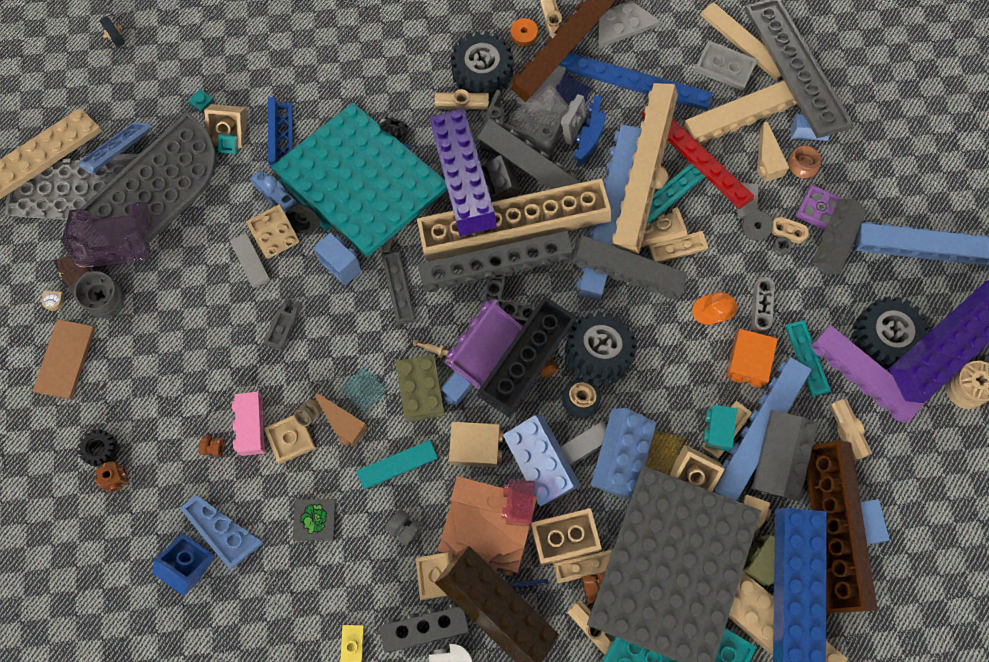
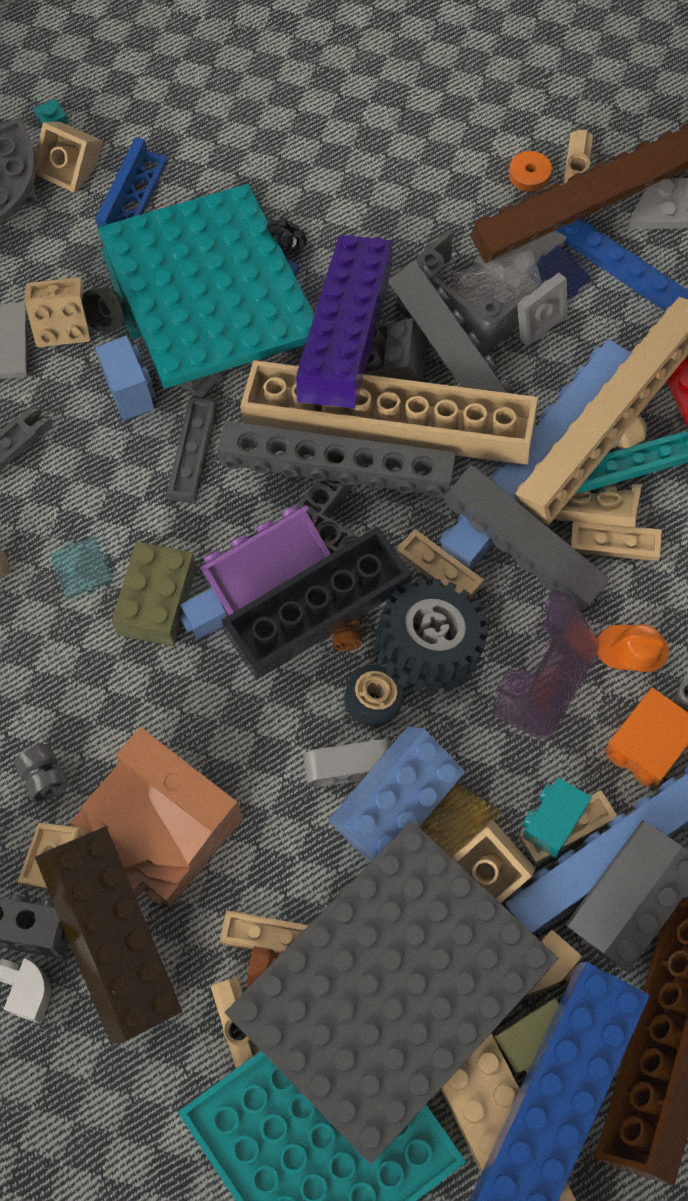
camera: 25 degrees right, 5 degrees down
(227, 143) = (56, 179): teal tile -> none
(273, 191) = (85, 259): medium blue piece -> none
(345, 425) = (27, 599): medium nougat slope -> none
(397, 465) = (75, 685): teal tile -> none
(432, 348) = (196, 545): tan piece -> none
(471, 100) = (396, 229): tan piece -> none
(472, 74) = (425, 193): black wheel -> none
(475, 444) = (194, 700): tan brick -> none
(518, 503) = (204, 795): clear pink brick -> none
(527, 584) = (174, 923): clear blue piece -> none
(541, 460) = (274, 758): medium blue brick -> none
(565, 537) = (257, 879): tan brick -> none
(582, 302) = (438, 564): none -> tan plate
(591, 133) = (559, 340): blue slope -> none
(679, 364) = (540, 700): none -> windscreen

